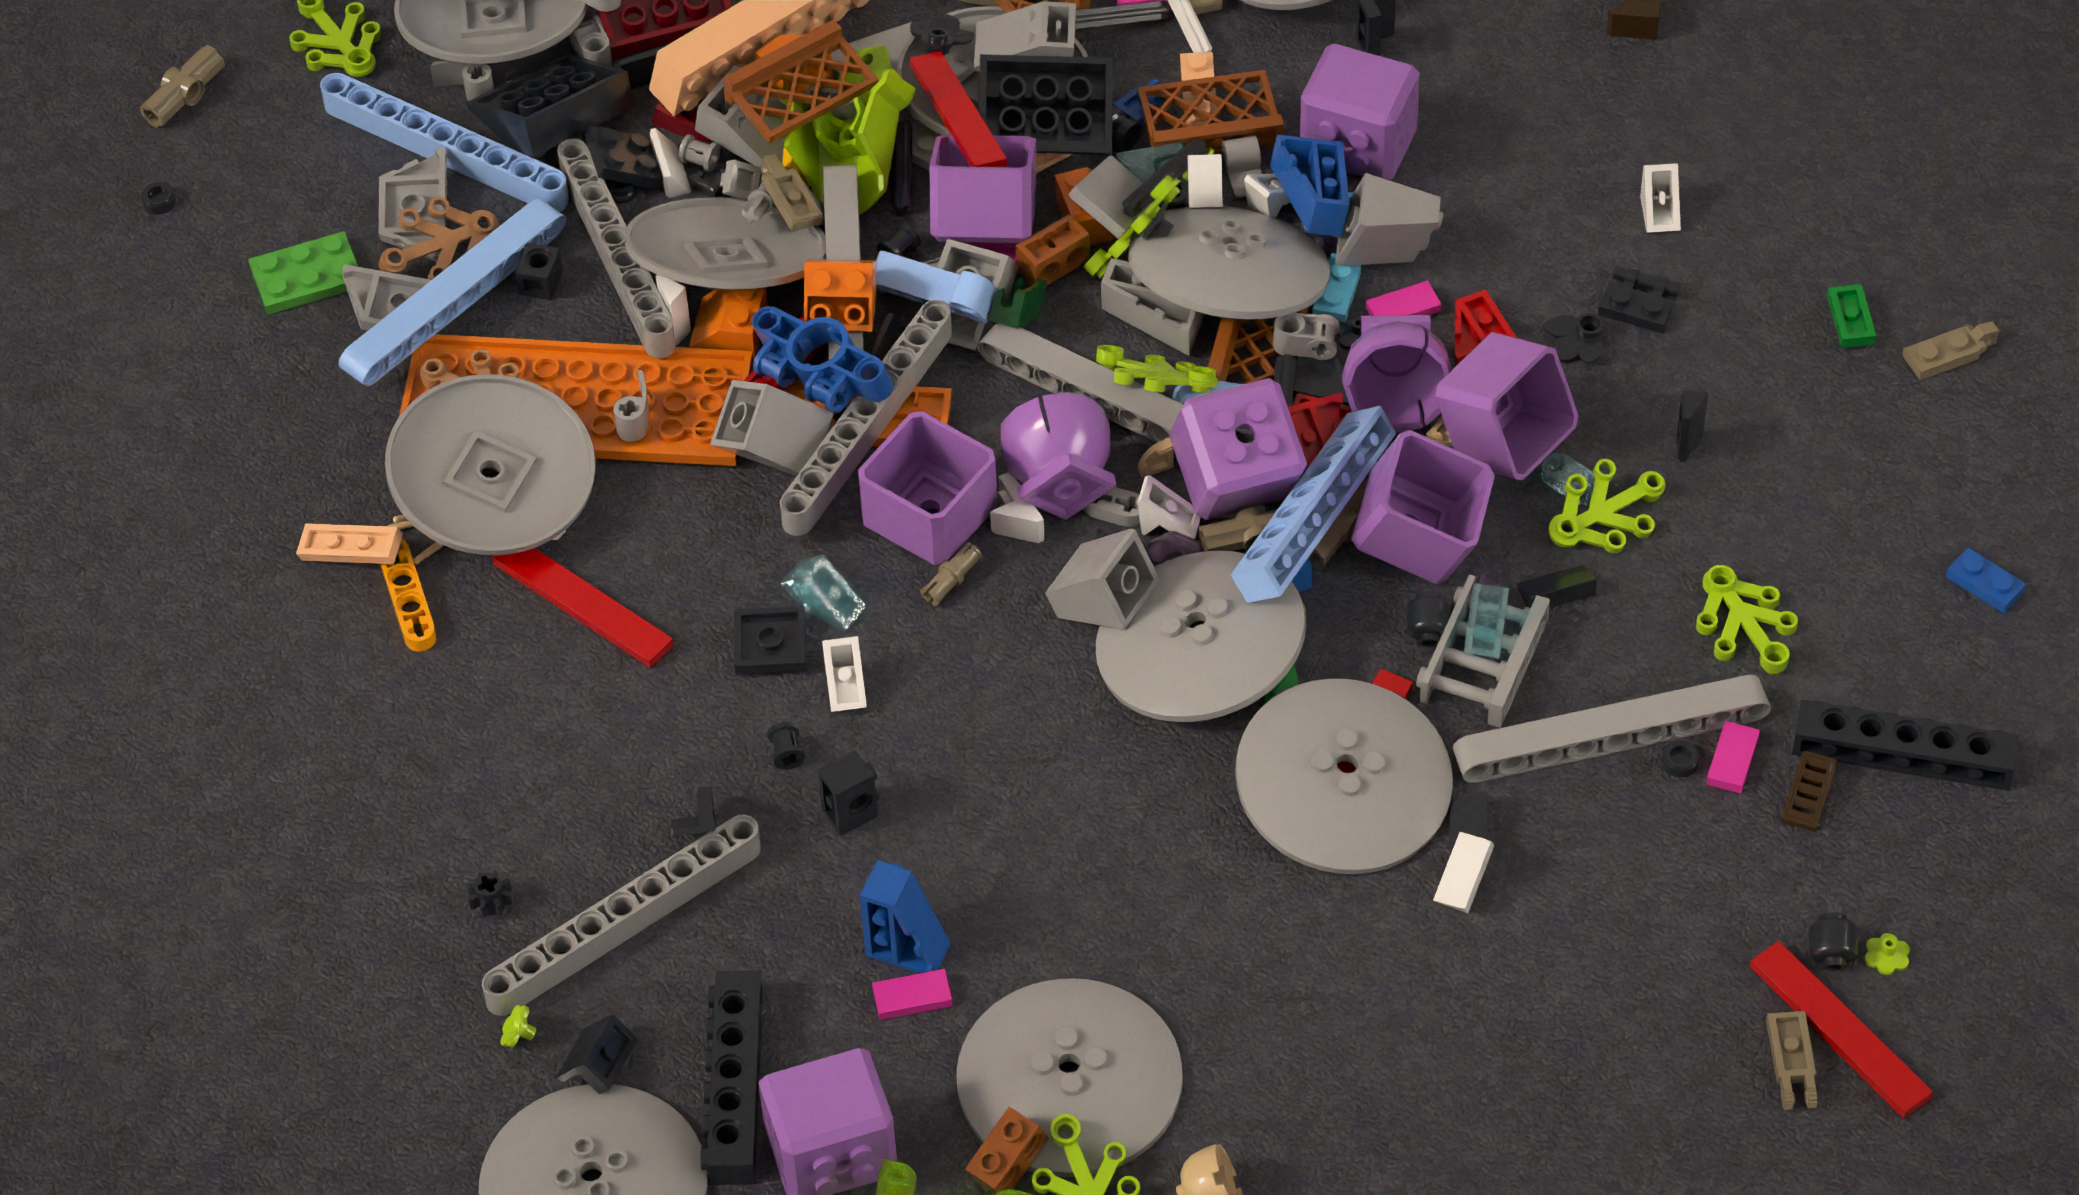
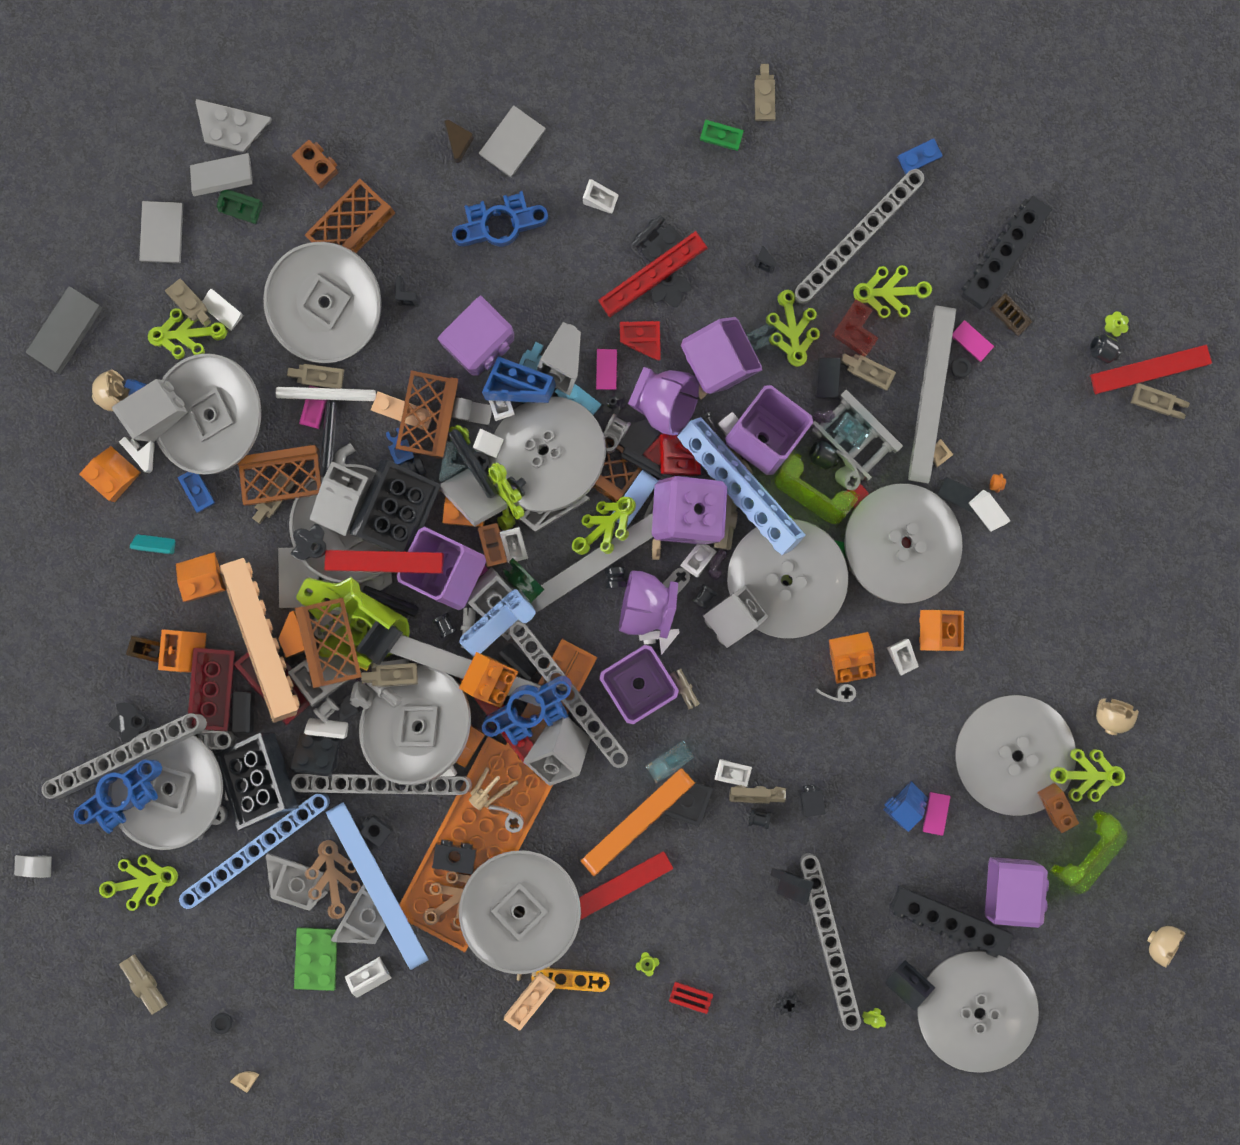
camera: 70 degrees left, 35 degrees up
(79, 254) = (245, 1080): none -> tan tile
(301, 345) = (367, 977): none -> white slope
(443, 740) = (676, 1001): none -> red tile
(473, 676) = (653, 962): none -> lime plate
(539, 359) = (442, 857): none -> black brick
(653, 366) = (480, 798): none -> tan plant
(705, 580) = (637, 822): none -> orange beam
(821, 721) = (757, 795): none -> dark tan hinge
(833, 150) = (379, 642): none -> black panel
(1050, 781) = (839, 697): none -> light grey panel
(1071, 280) = (514, 544): none -> white slope
(1098, 47) = (342, 453): none -> light grey arm
(1116, 774) = (852, 657): none -> orange slope
(1157, 841) = (903, 656): none -> white slope
(1228, 883) = (941, 630): none -> orange slope
(1372, 578) = (830, 510): none -> clear neon green windscreen
(1421, 658) = (847, 475): none -> light grey panel
(1518, 874) = (997, 483): none -> orange plate
(1522, 783) = (941, 453): none -> tan tile
(1573, 126) = (515, 206): none -> blue piece
(1583, 301) = (653, 274): none -> red tile
(1600, 633) = (869, 370): none -> dark tan hinge
(1656, 575) = (851, 331): none -> clear red brick
(1679, 80) = (512, 141): none -> light grey tile
(1806, 540) = (863, 228): none -> light grey beam

